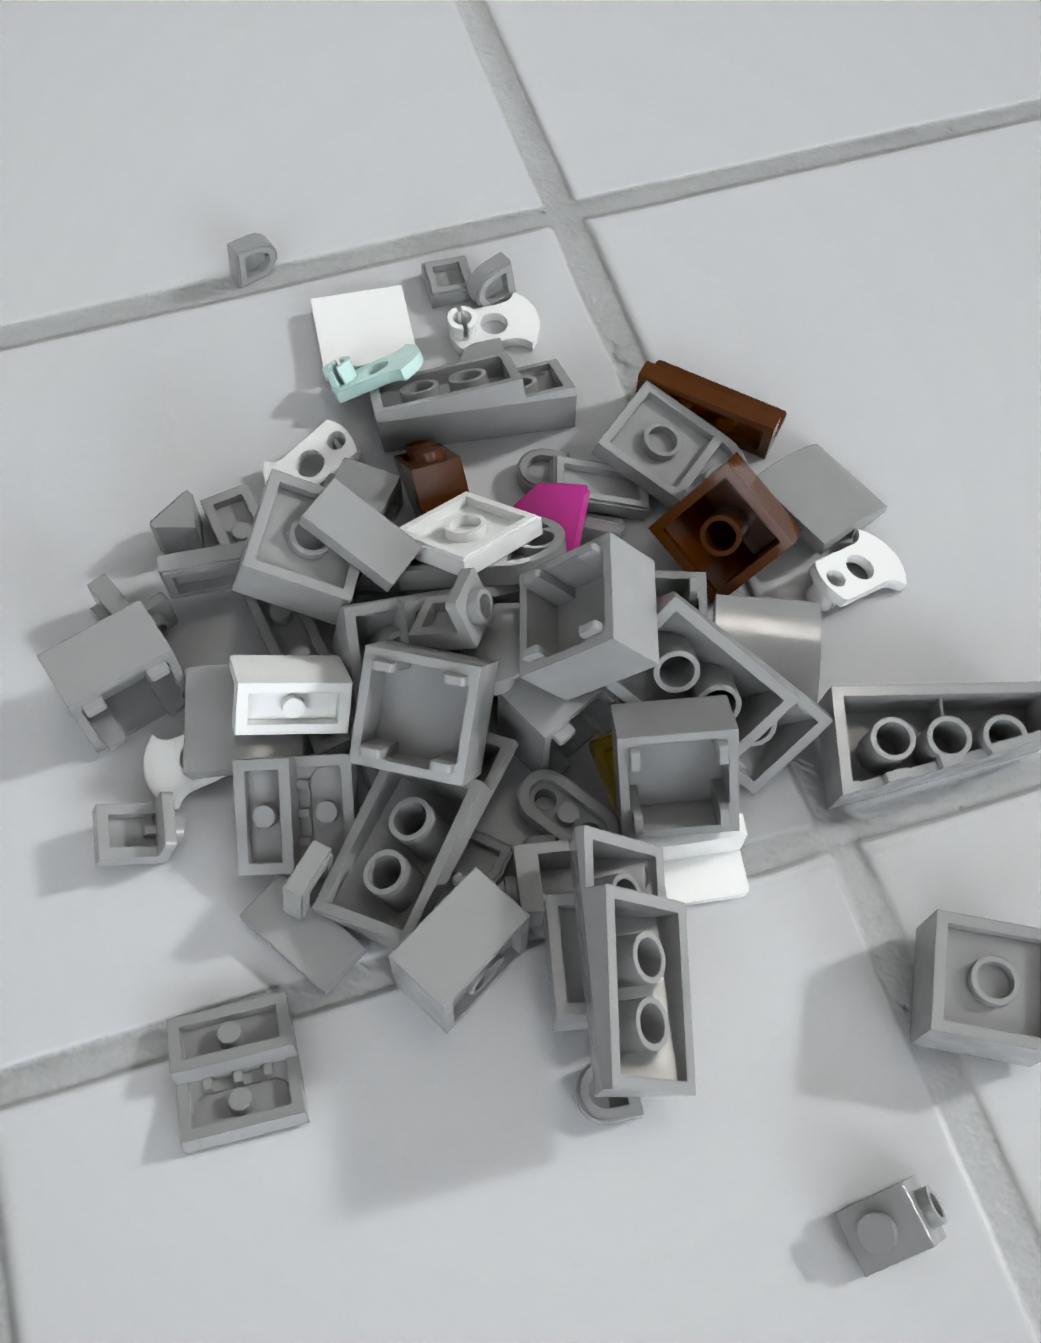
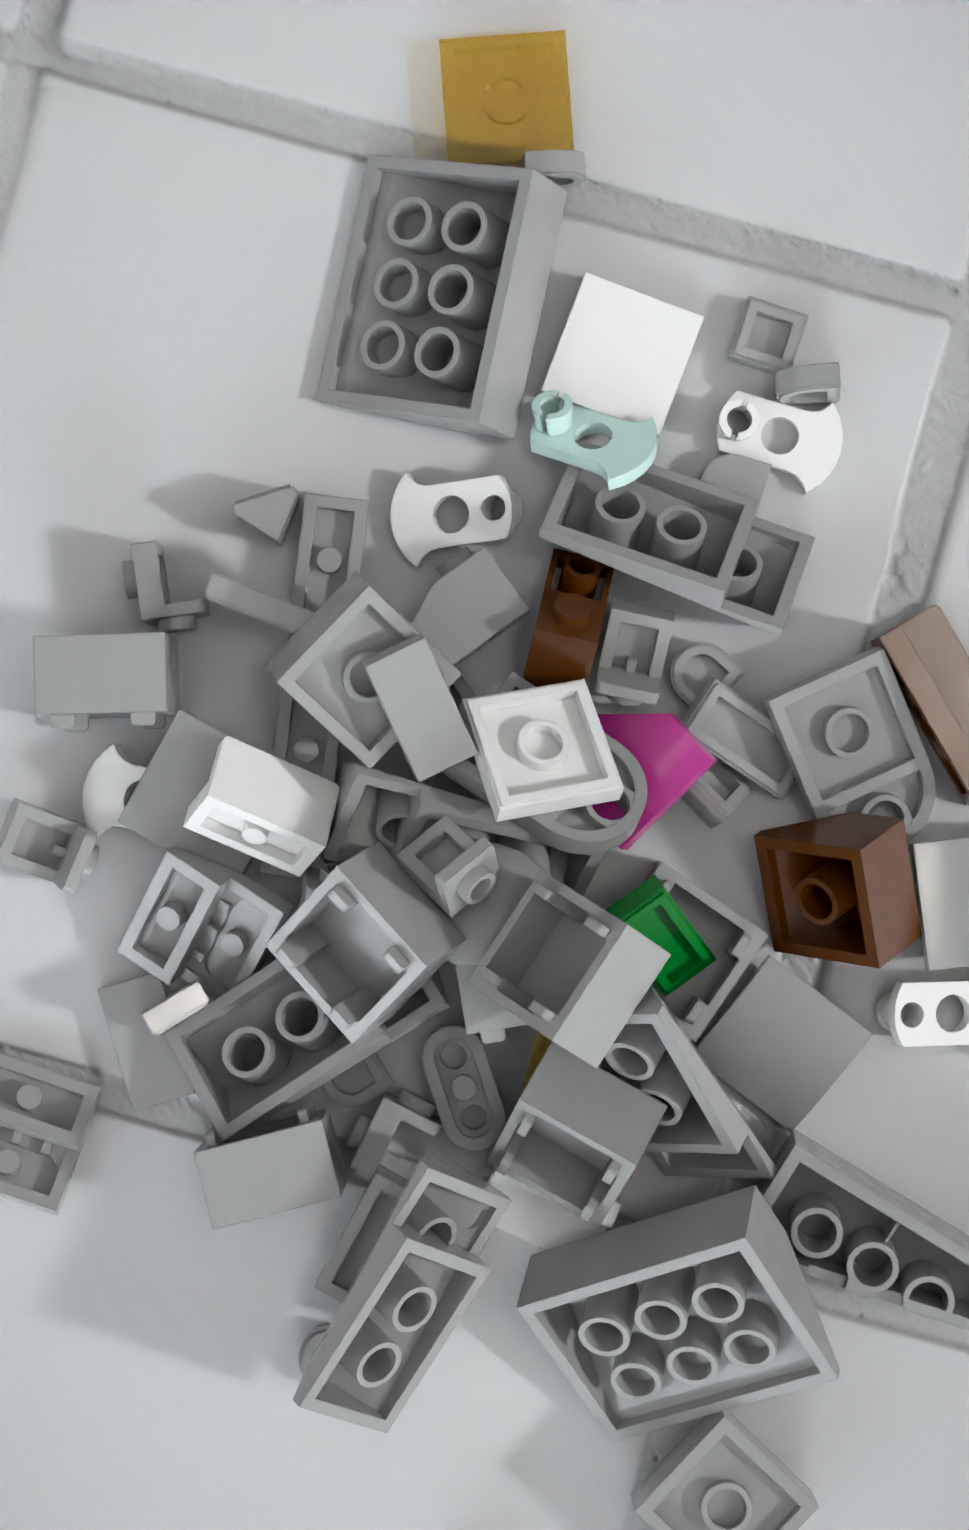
camera: 35 degrees right, 25 degrees up
(194, 245) = (505, 96): none -> clear yellow tile
(224, 352) = (442, 293): none -> light grey slope
(490, 471) = (633, 653): none -> light grey bracket
(847, 862) = (679, 1315): none -> light grey slope

